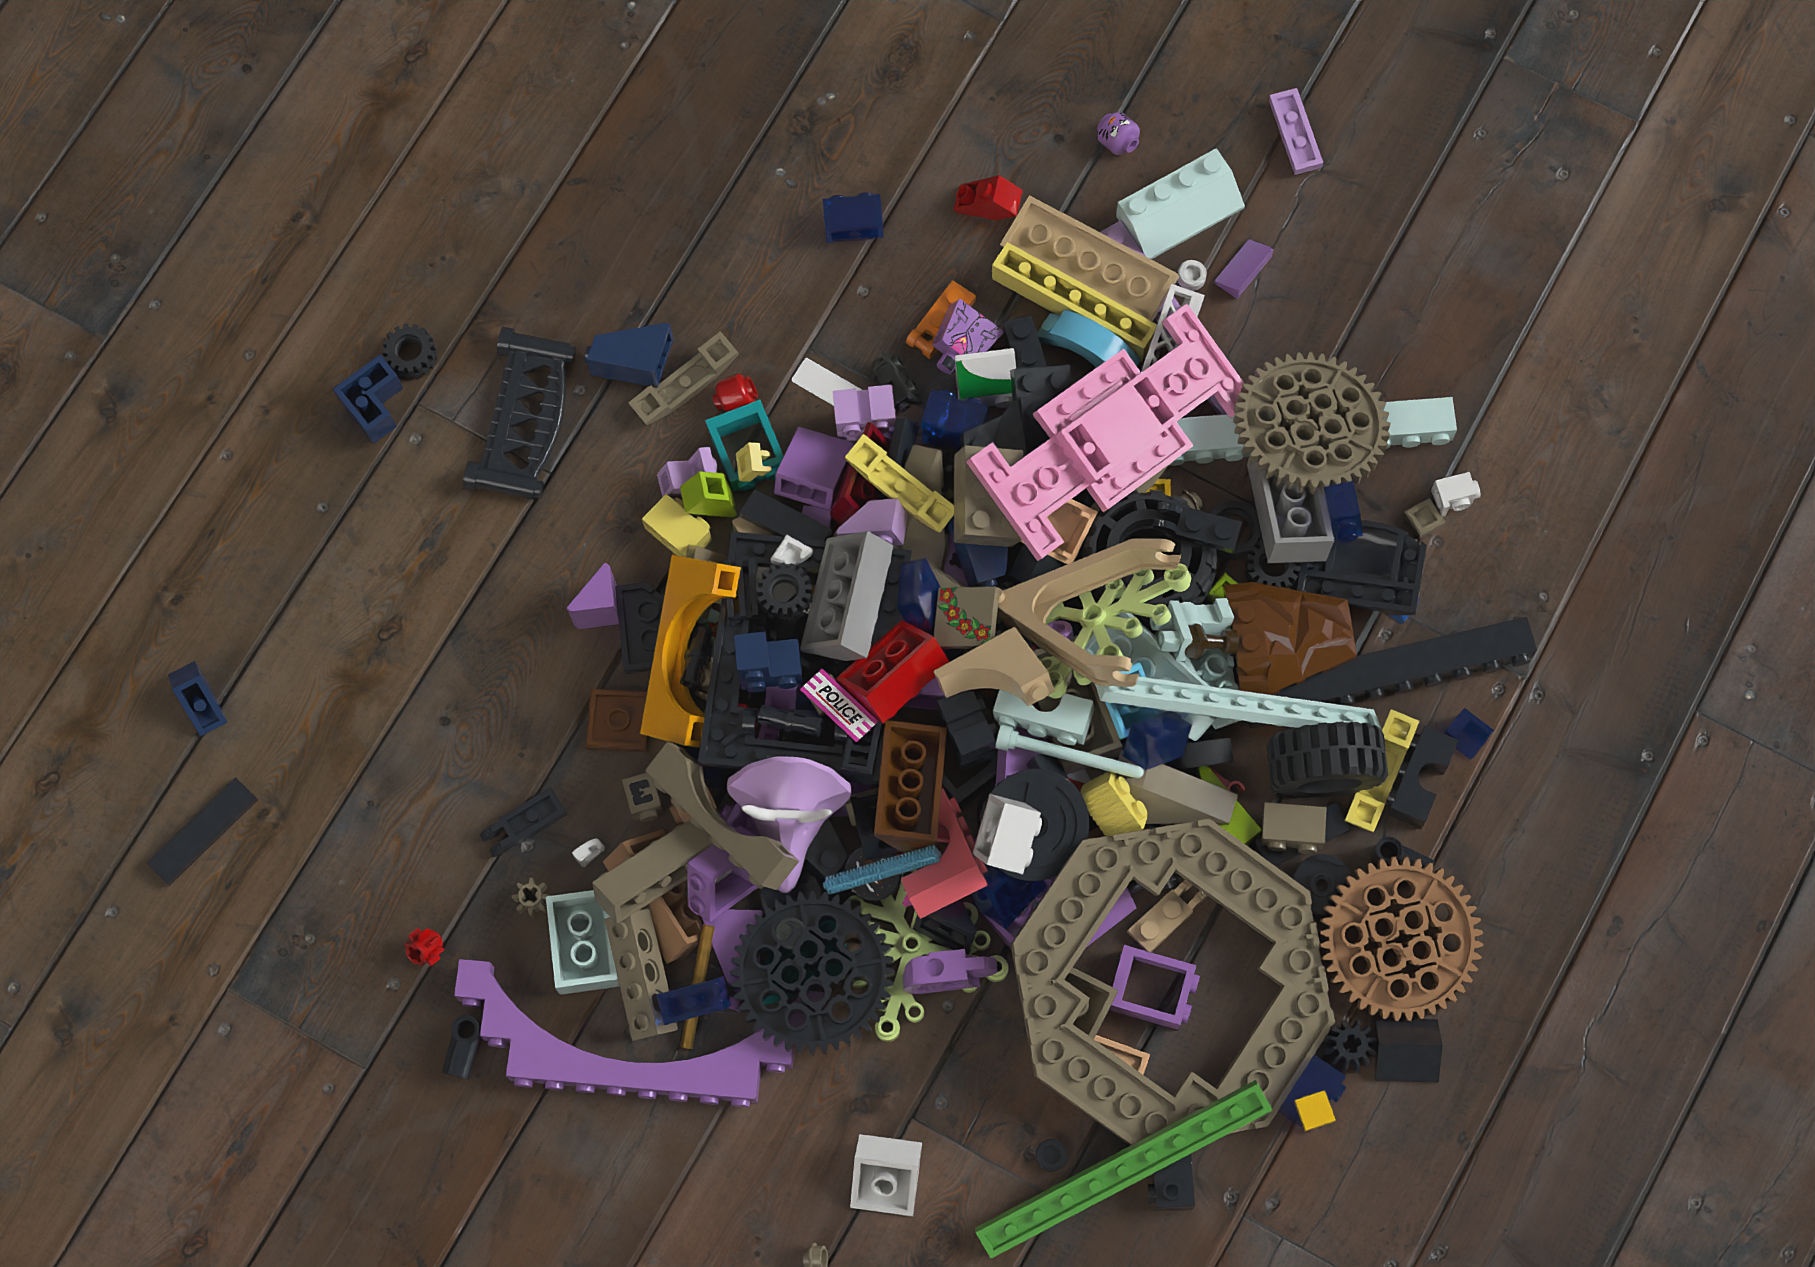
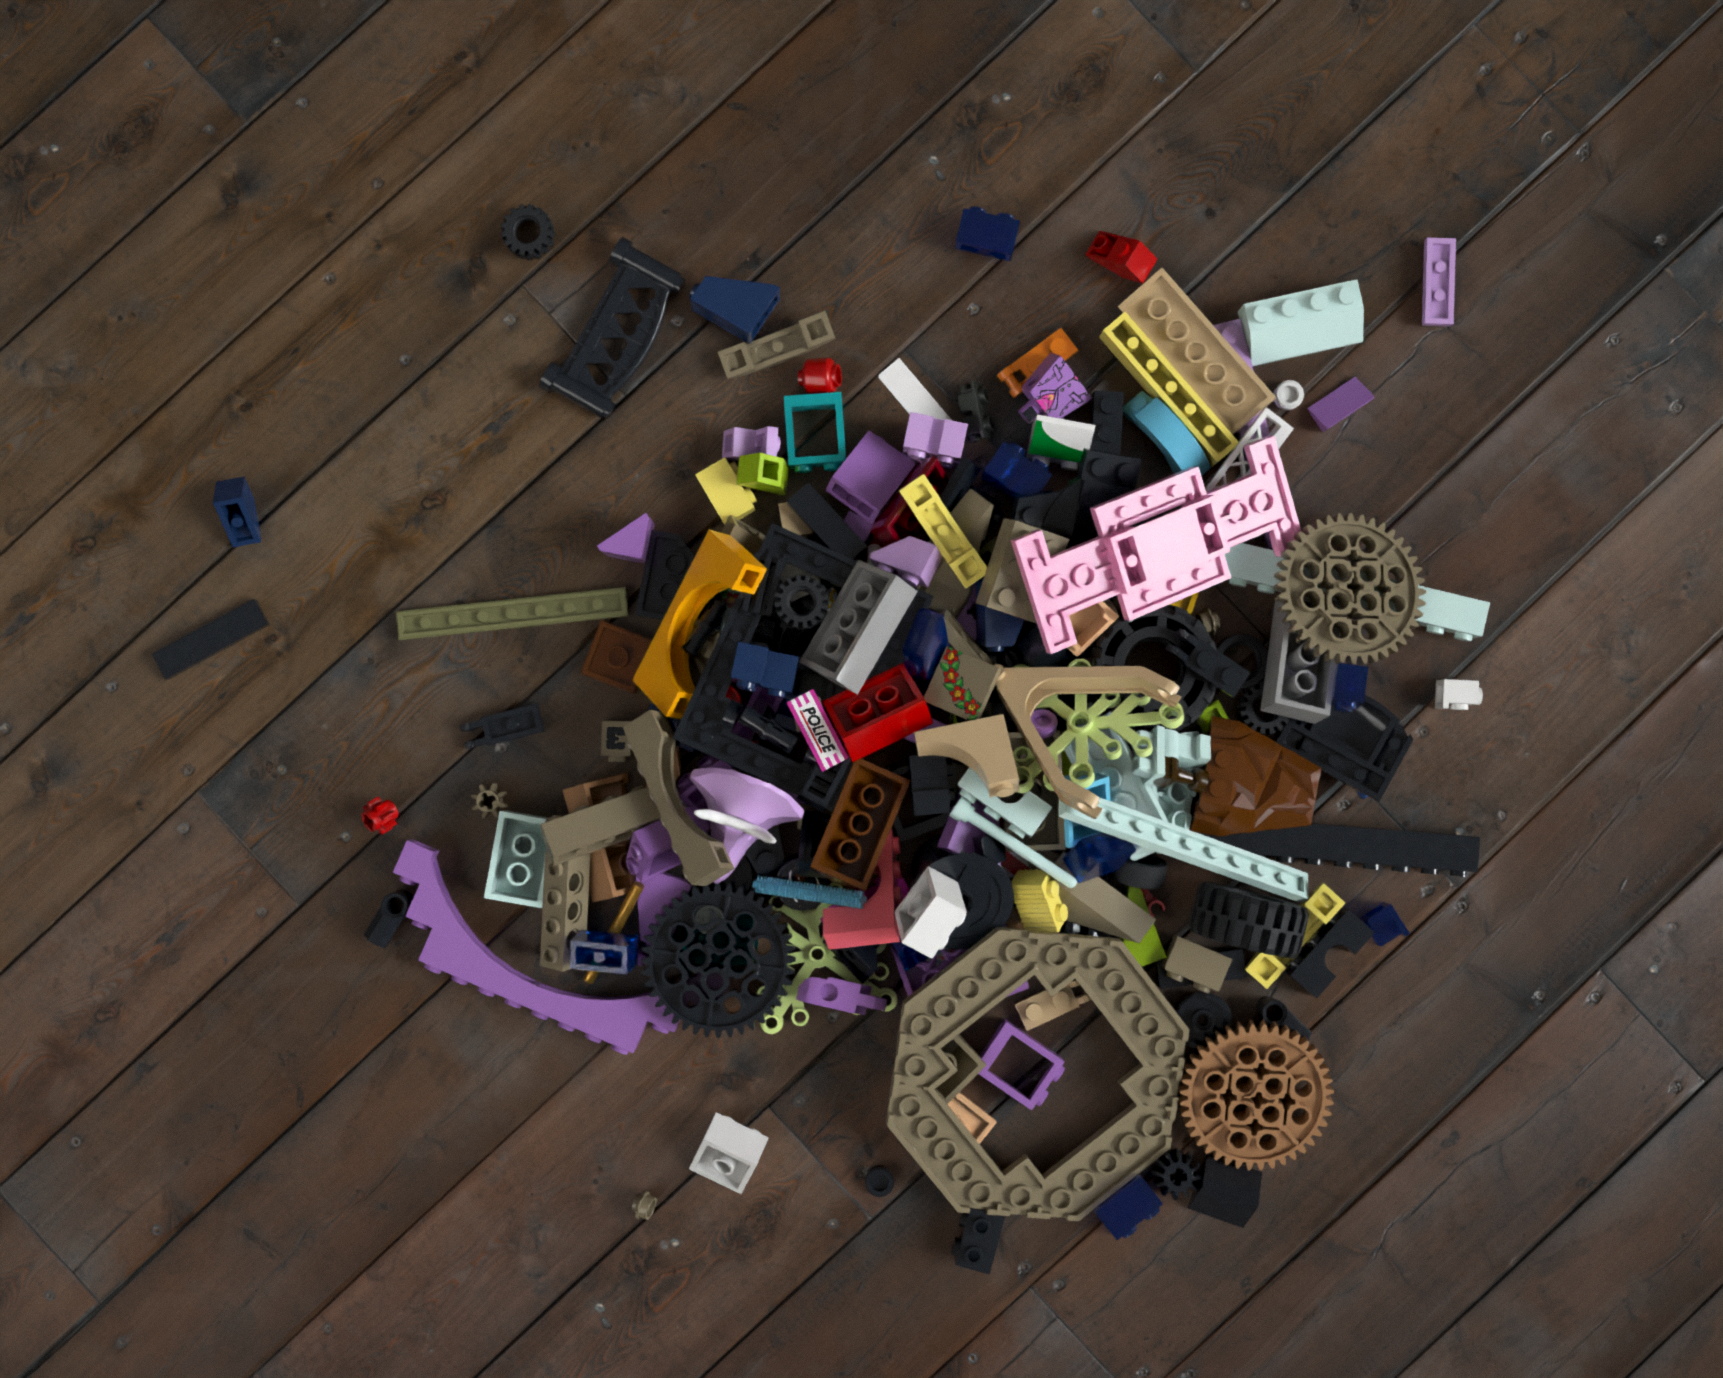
camera: 15 degrees right, 15 degrees up
(364, 397) = (471, 264): dark blue brick -> none
(499, 712) = (512, 613): none -> olive tile
(588, 851) = (553, 773): white tile -> none
(750, 462) = (811, 455): light yellow tile -> none
(791, 552) = (820, 563): white tile -> none
(1118, 133) = (1268, 229): medium lavender head -> none
(1123, 1169) = (939, 1225): bright green plate -> none
(1314, 1110) = (1124, 1228): yellow tile -> none
(1424, 518) = (1420, 706): dark tan tile -> none

